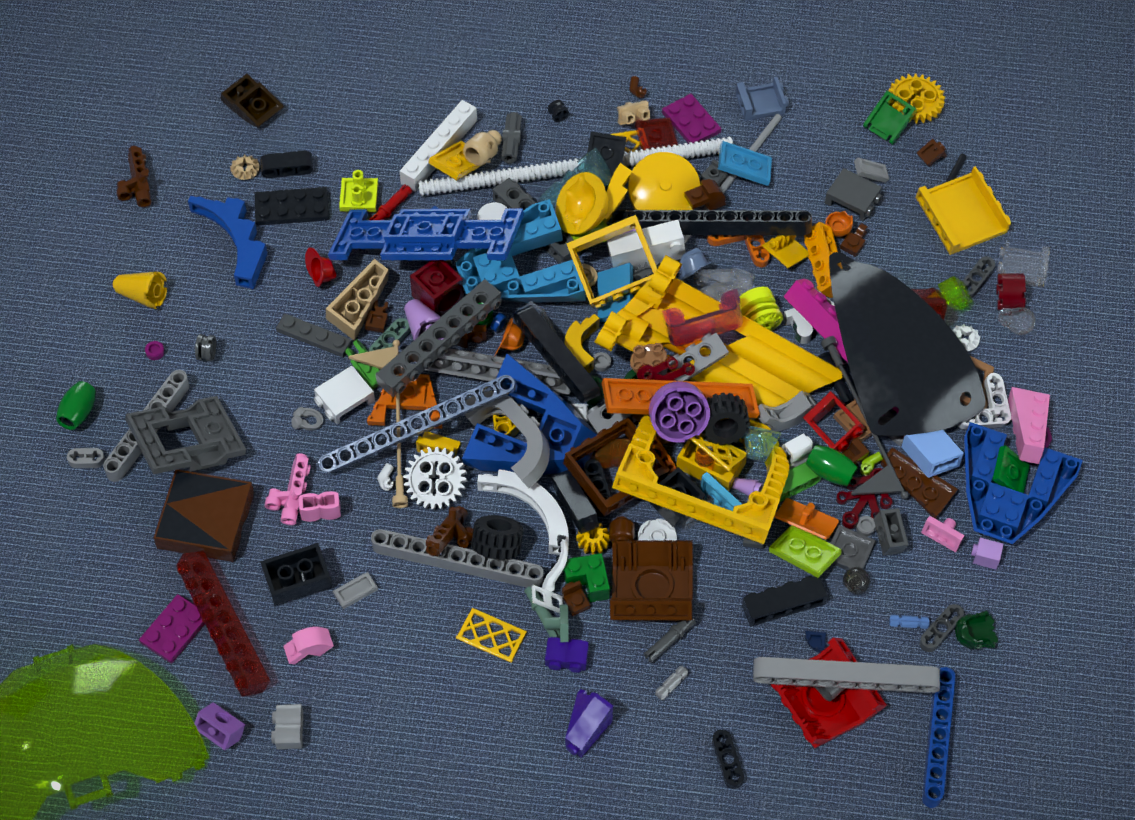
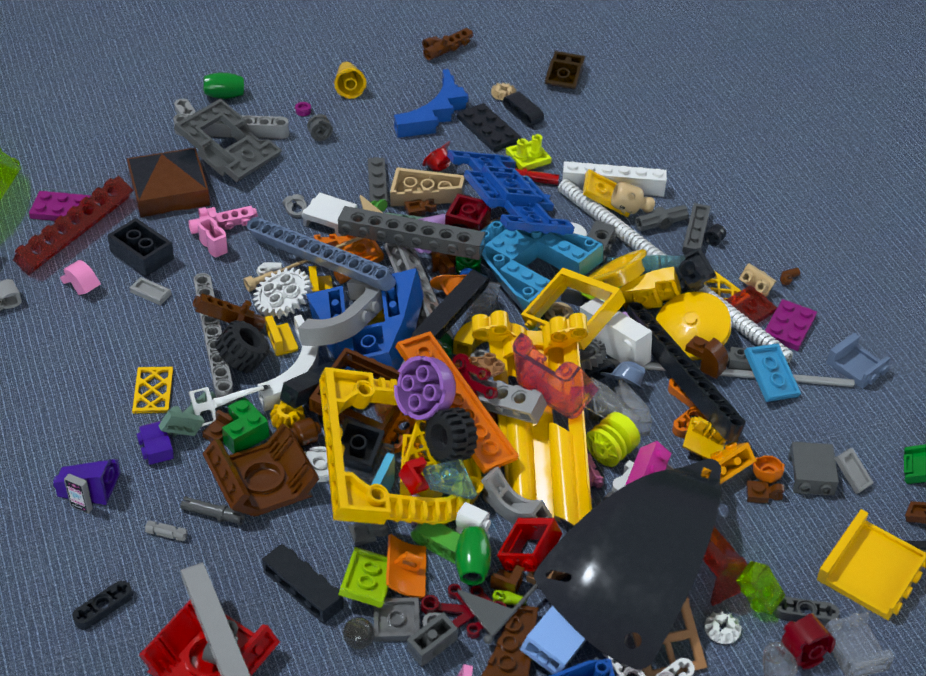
camera: 60 degrees right, 15 degrees down
(485, 504) = (280, 337): none -> yellow panel
(540, 120) = (696, 227): none -> dark grey plate
(605, 734) = (78, 493): none -> tile
(622, 154) = (691, 275): none -> black hips
(752, 467) = (412, 477): none -> red panel
(816, 640) = (277, 627): dark blue tile -> none

